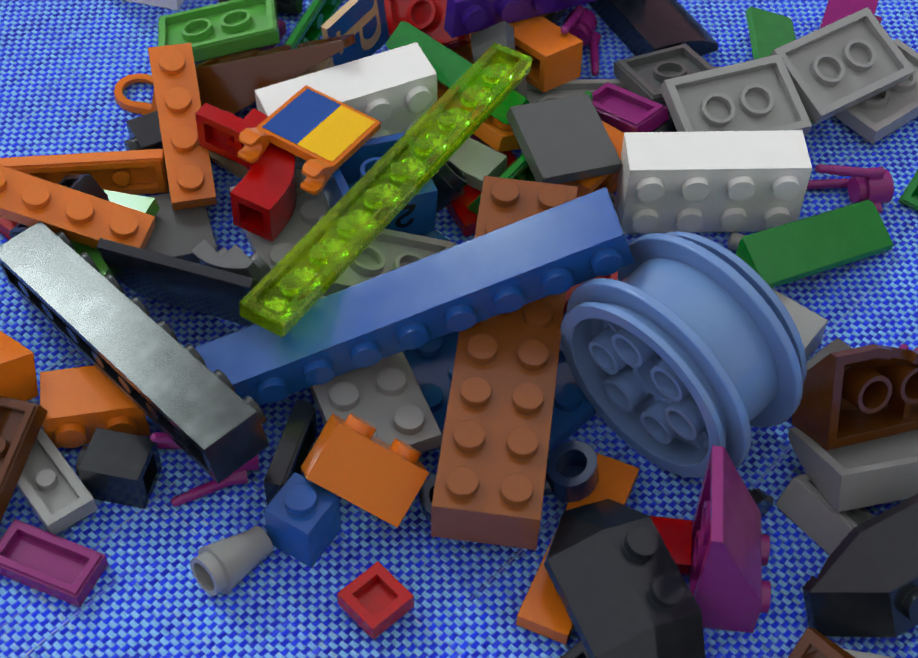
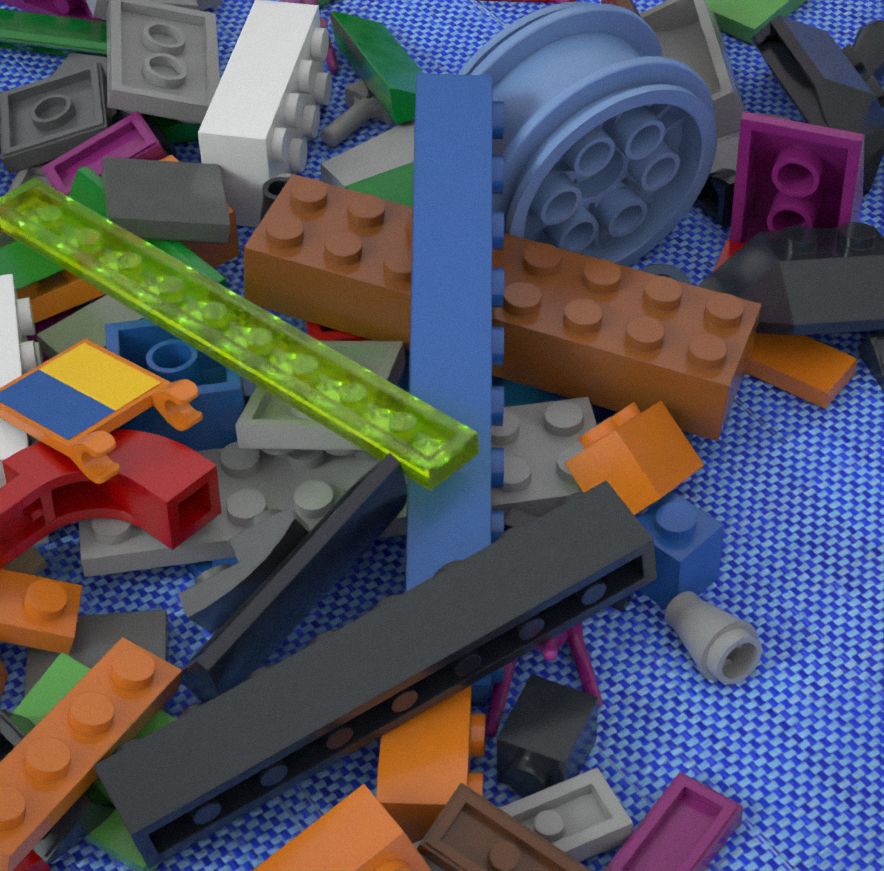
camera: 75 degrees left, 5 degrees down
(375, 600) = (790, 508): red plate -> none

